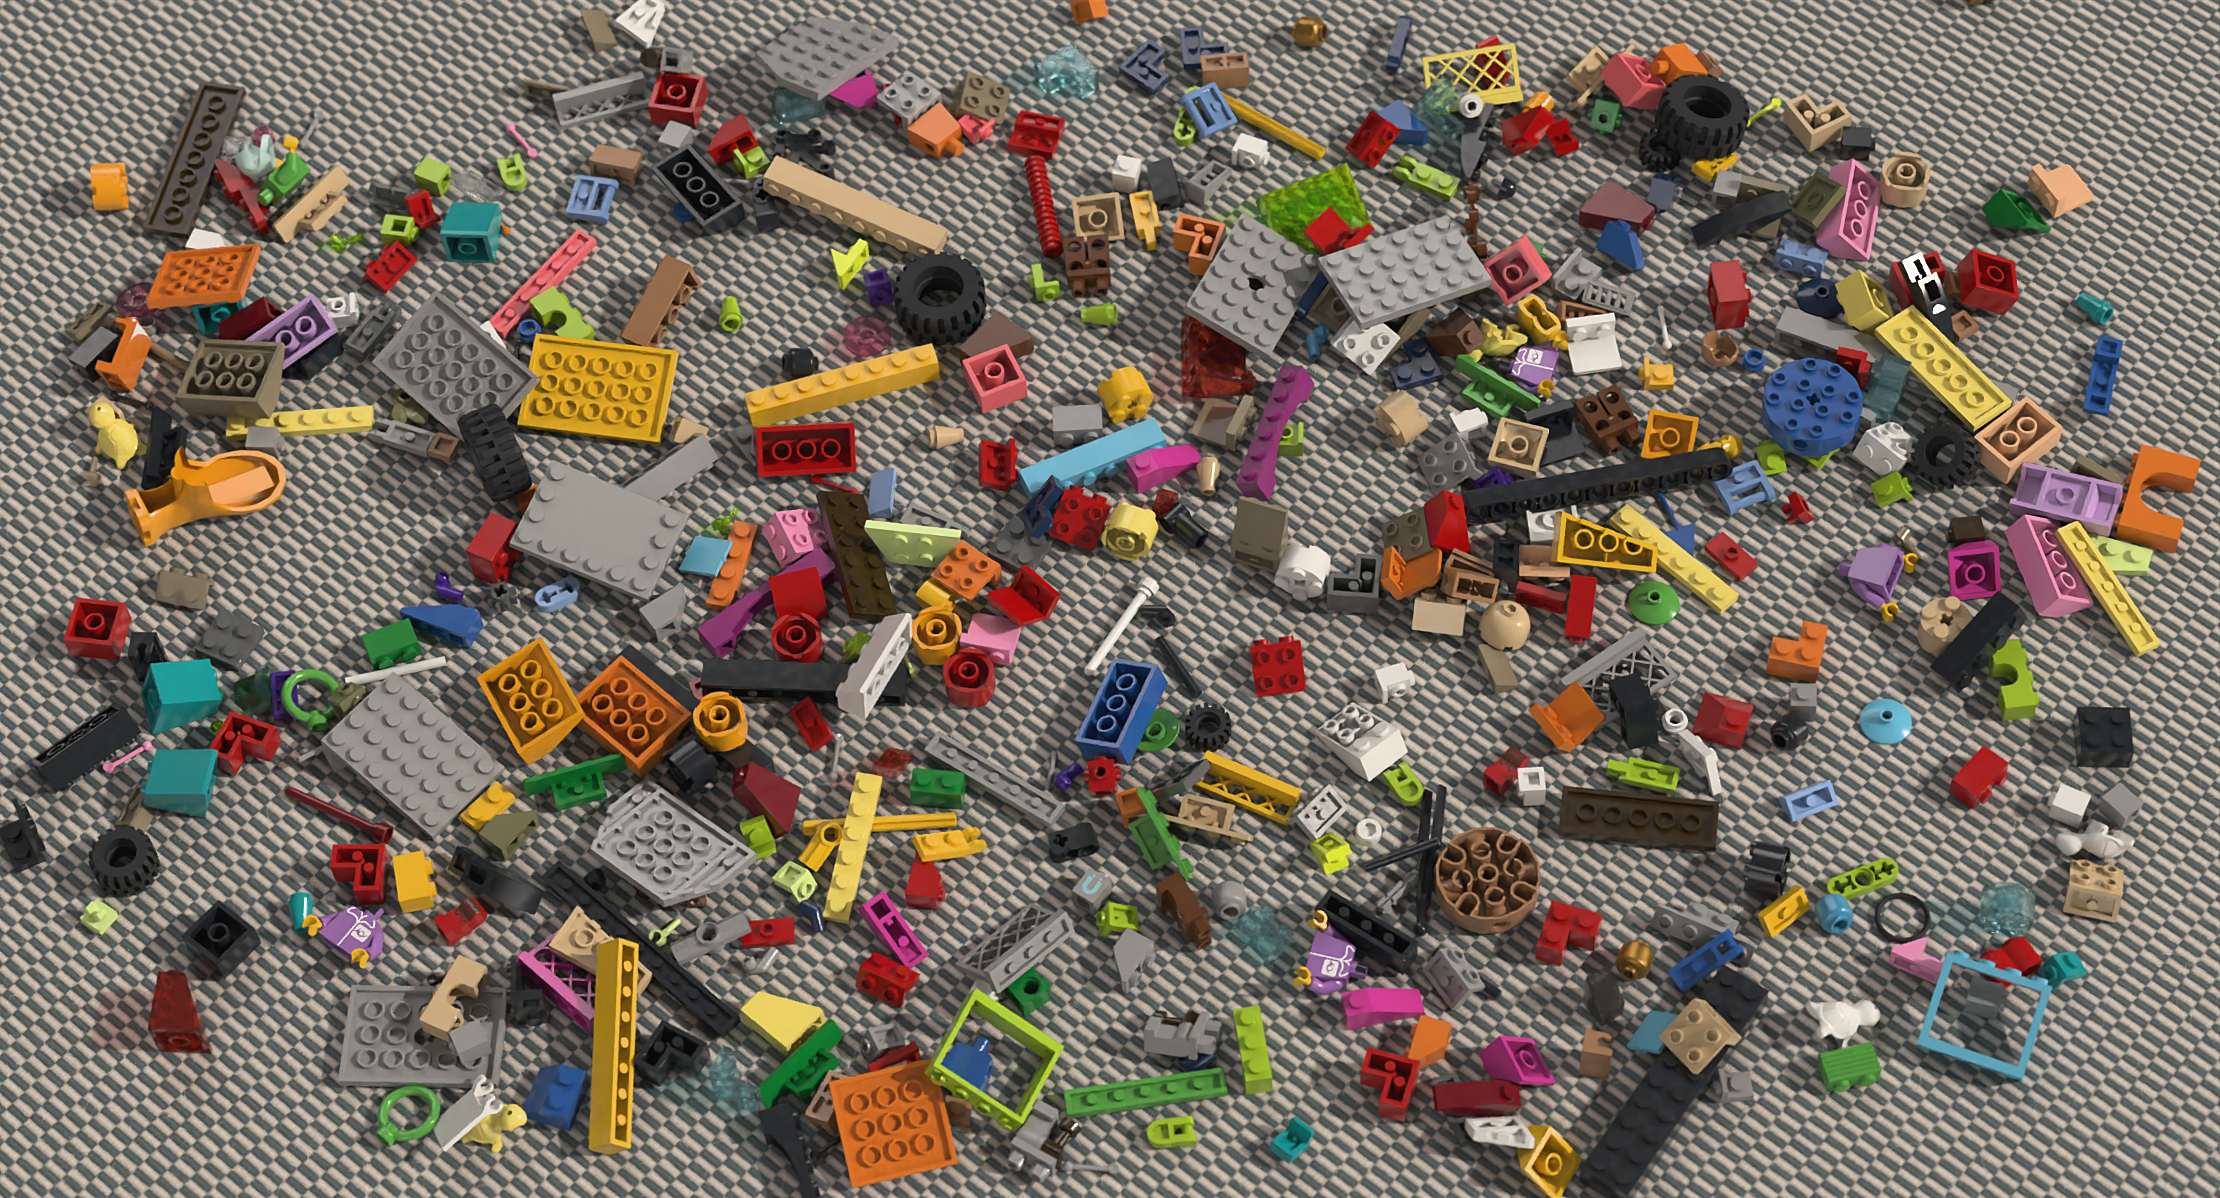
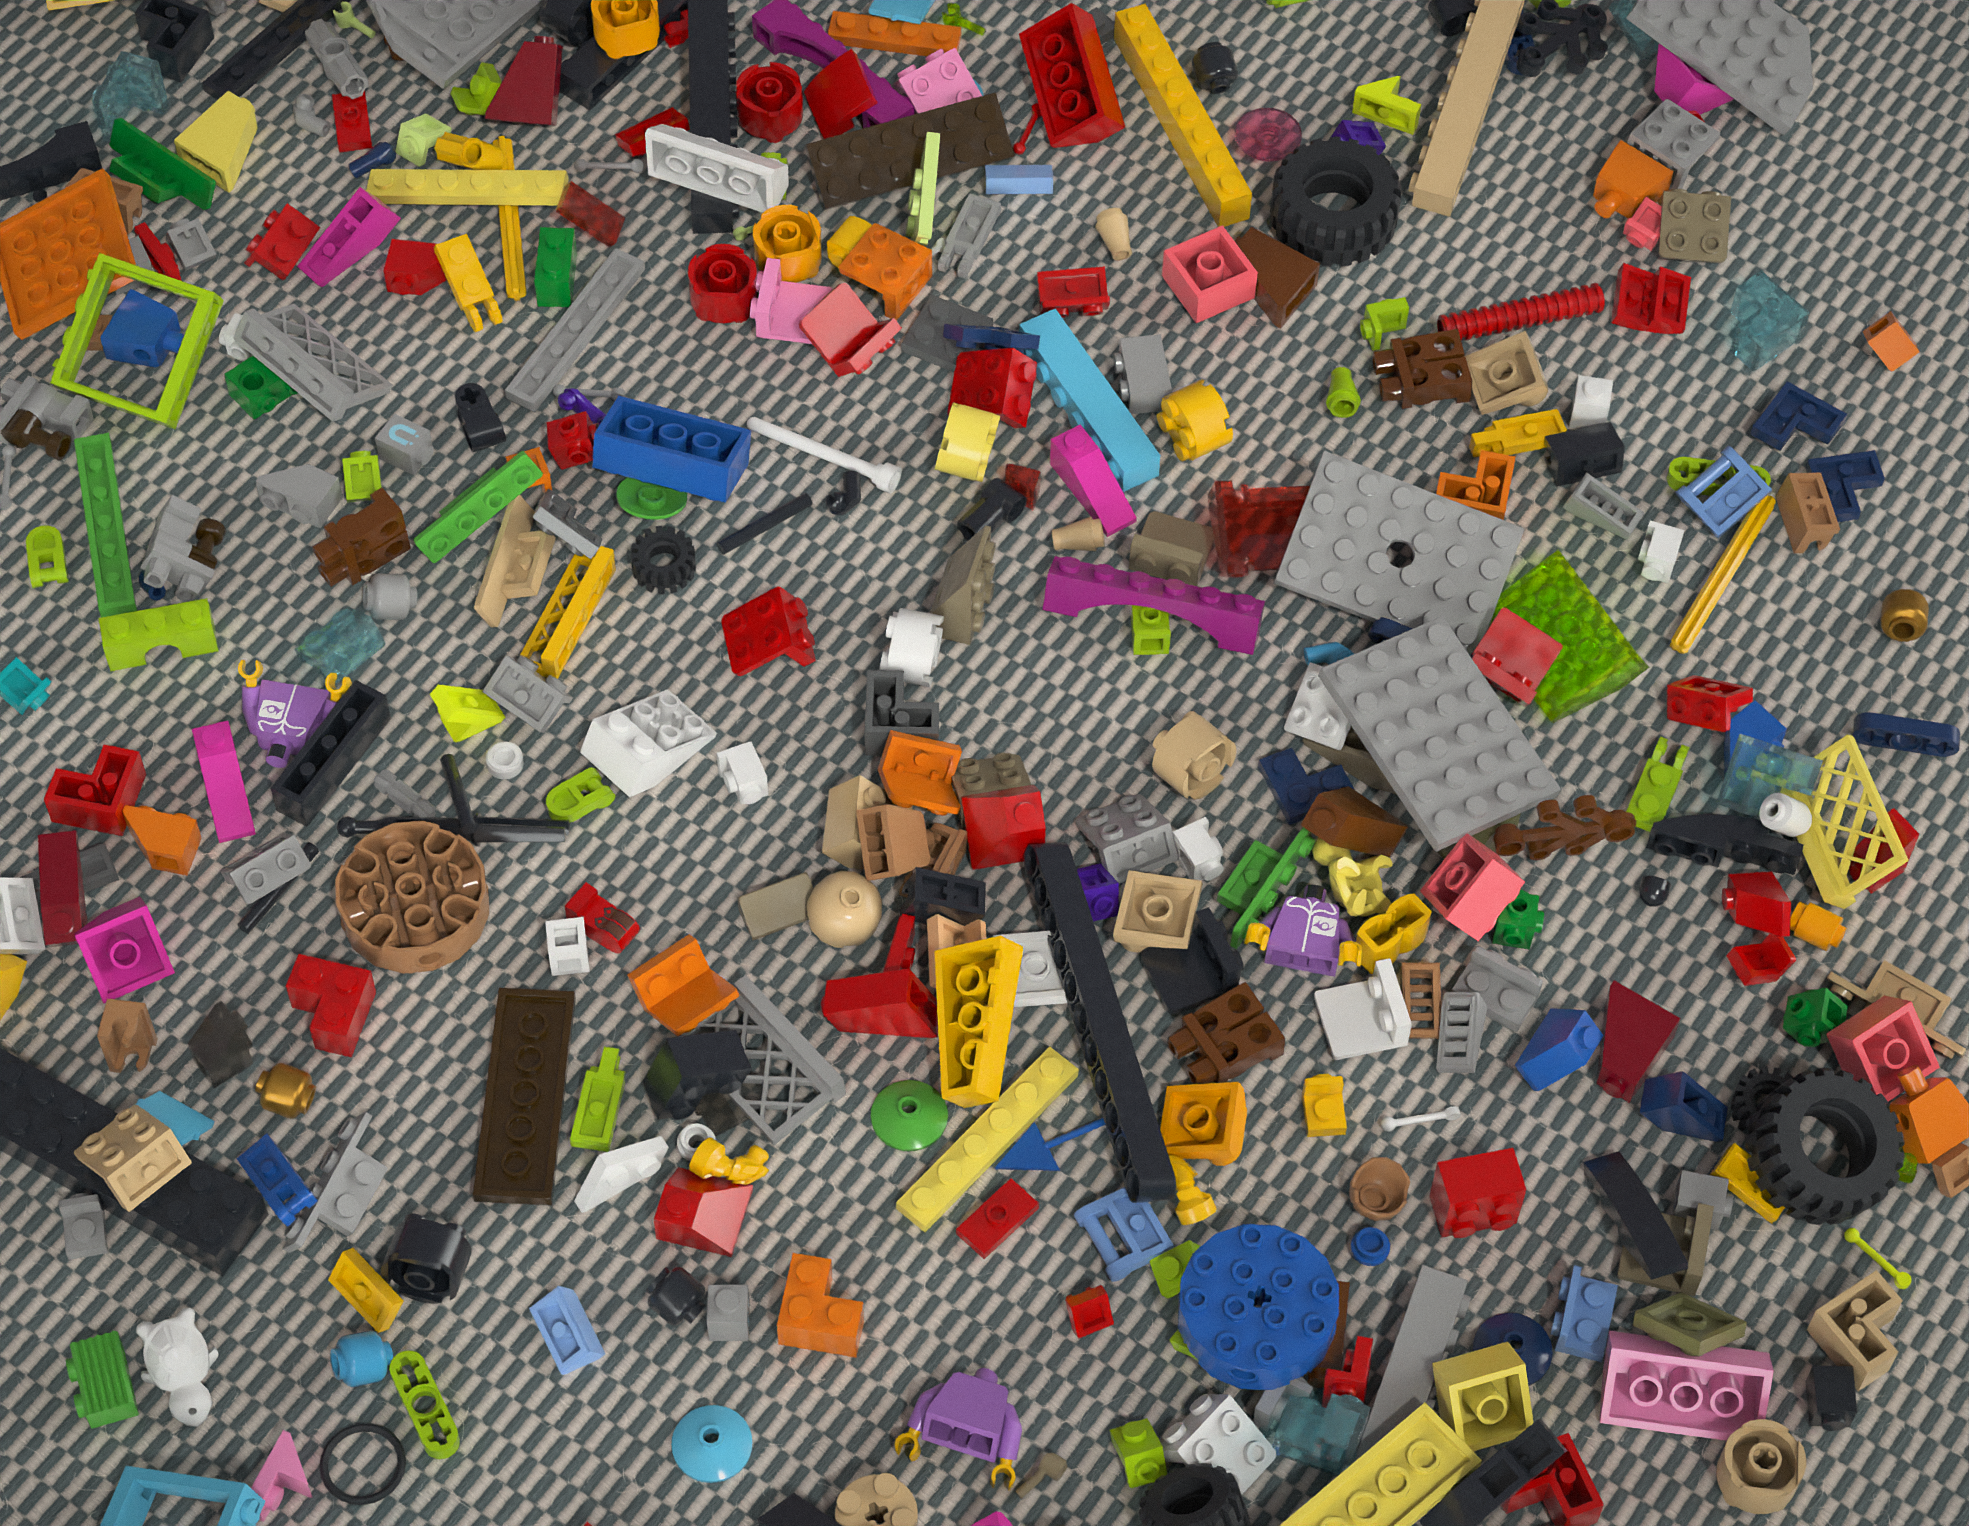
camera: 80 degrees right, 0 degrees up
(1695, 699) = (712, 1161): none -> yellow arm

